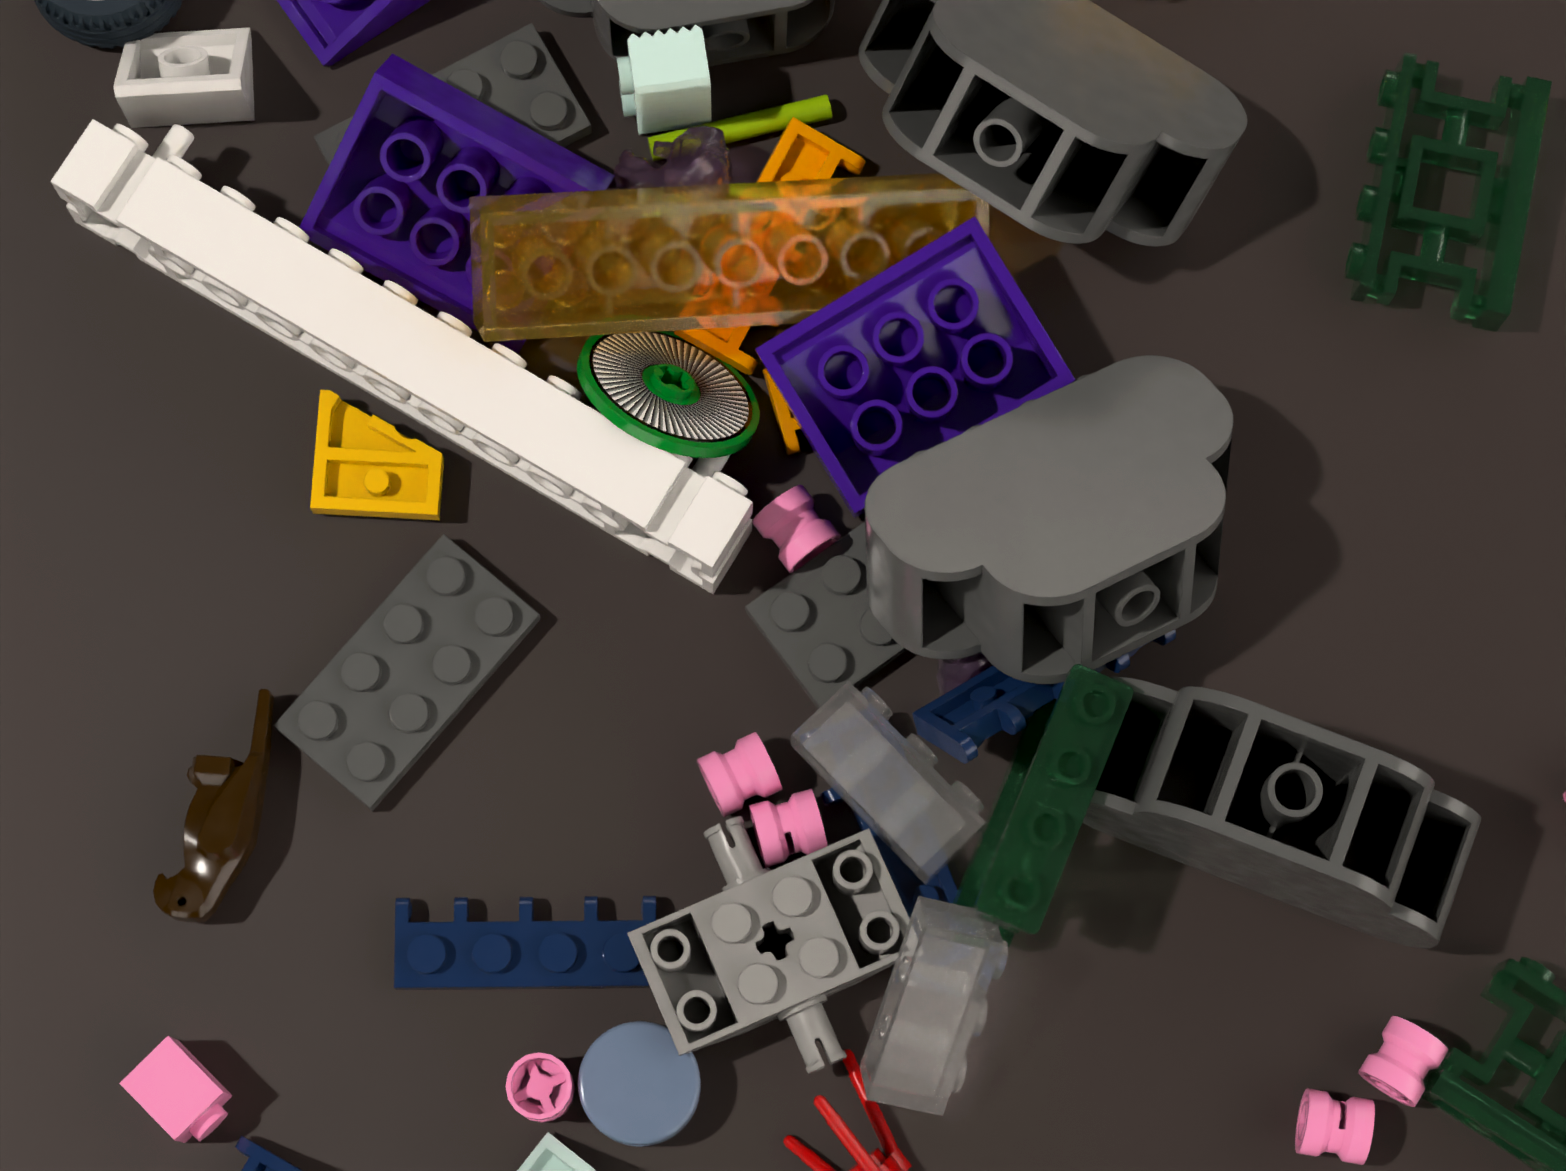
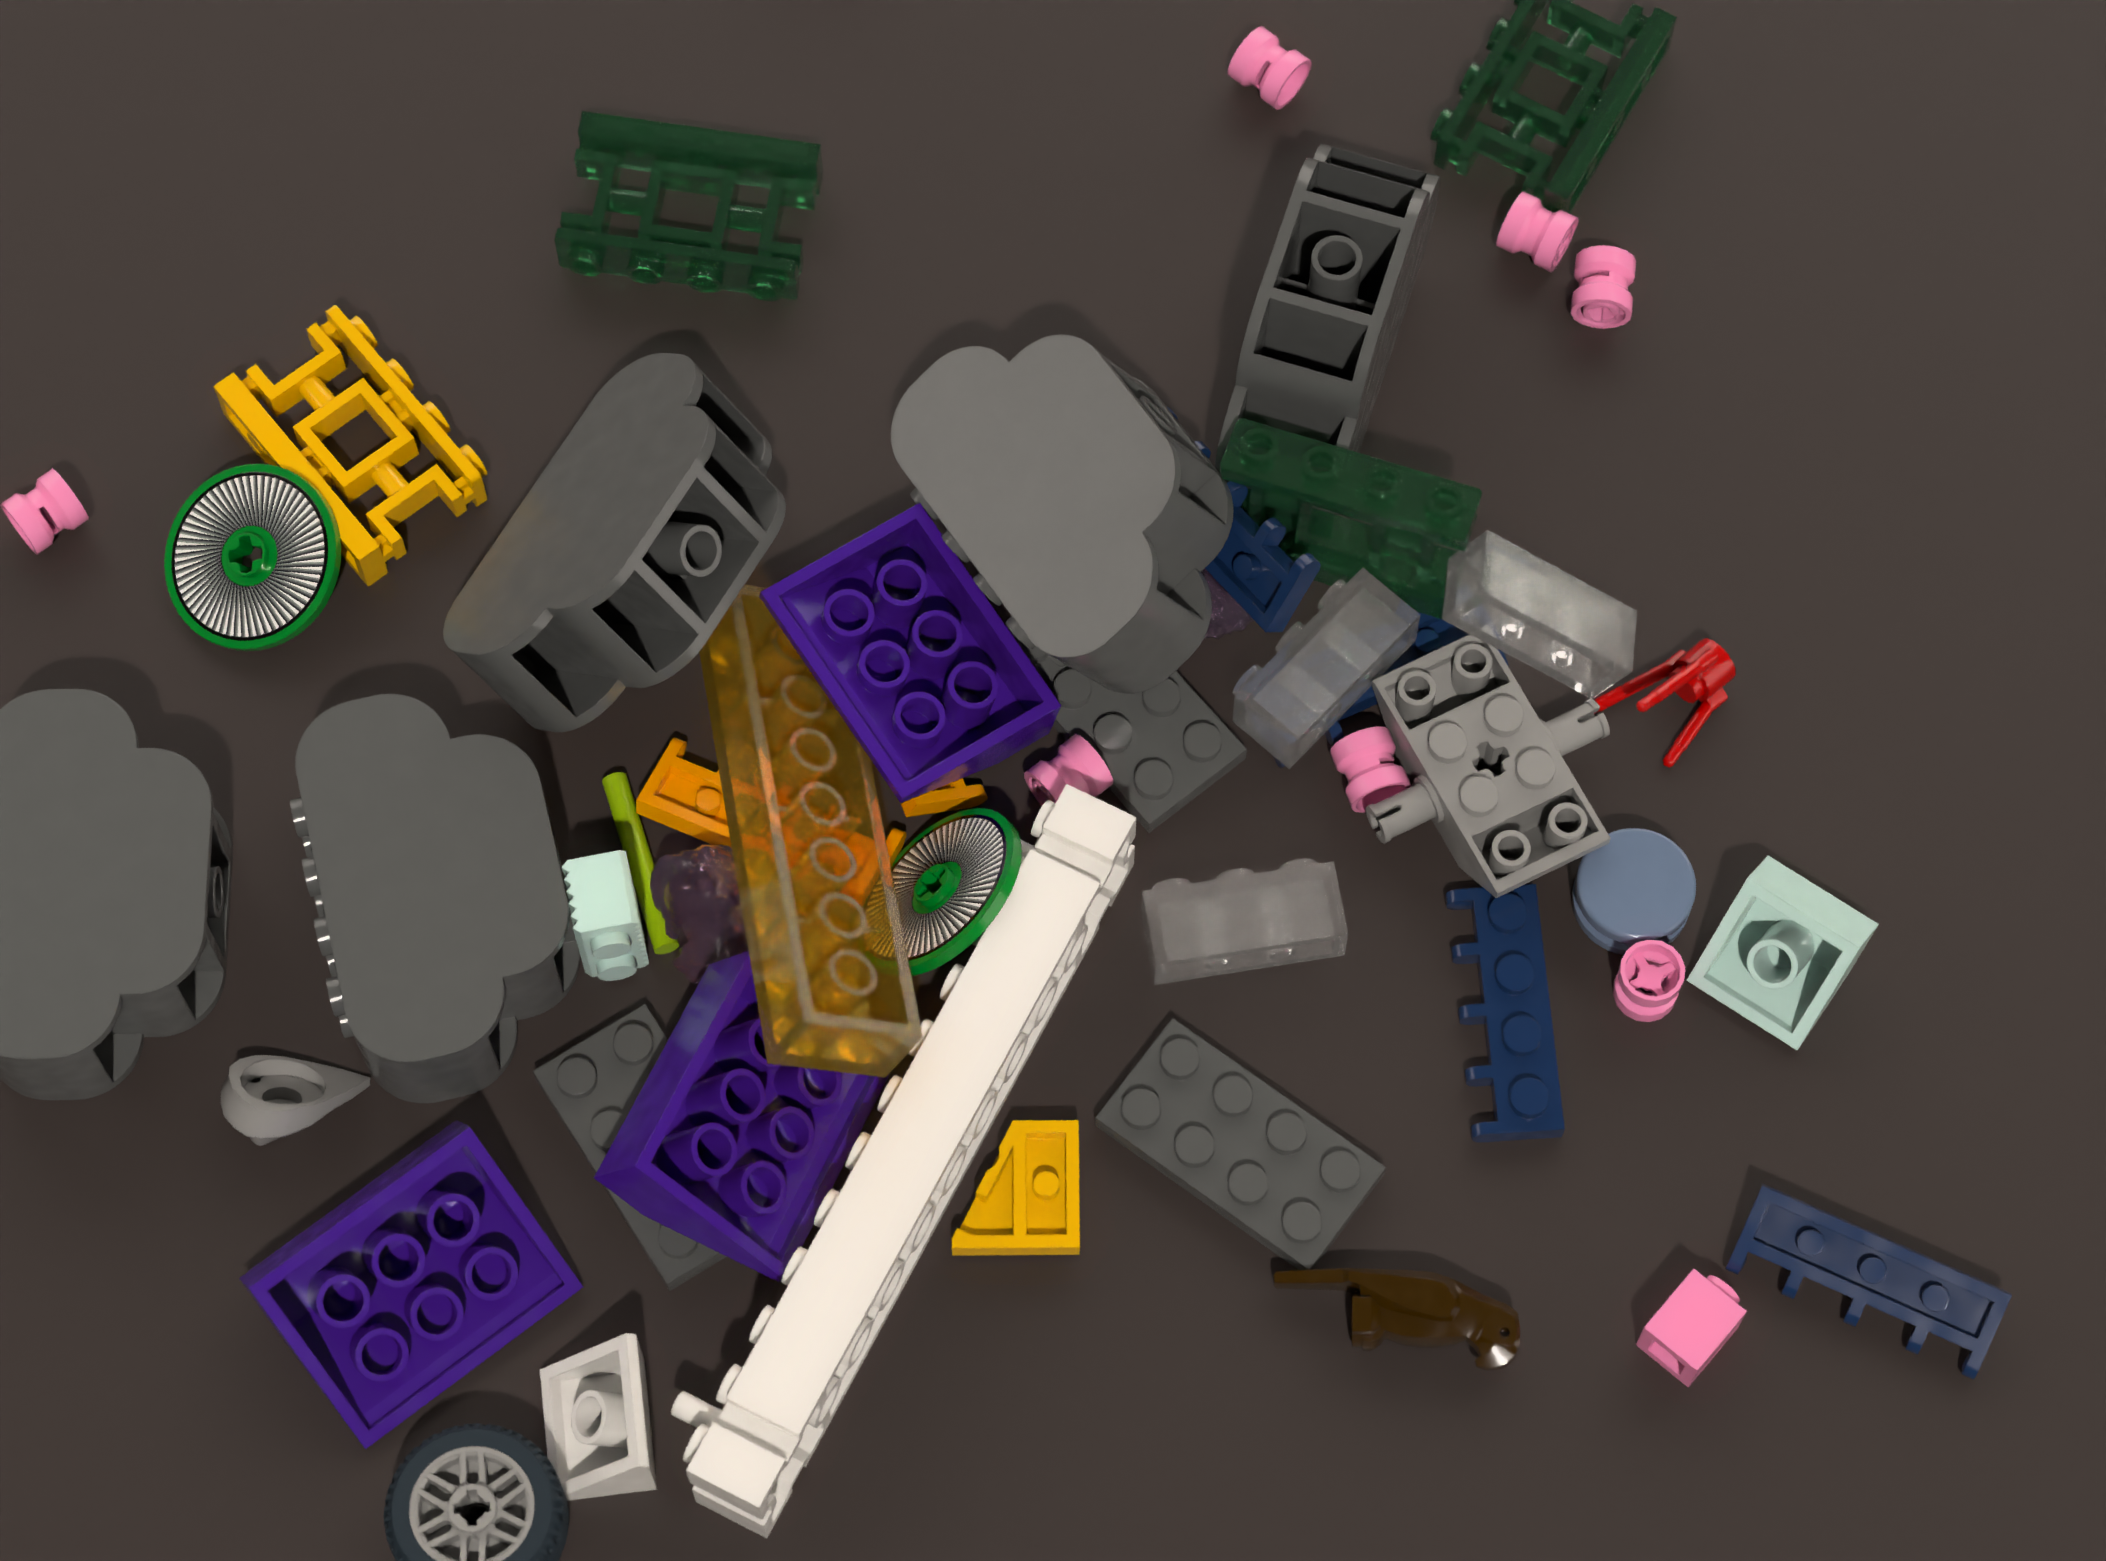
camera: 90 degrees left, 10 degrees down
(634, 688) = (1243, 921): none -> clear brick
(739, 774) = (1321, 816): bright pink wheel -> none

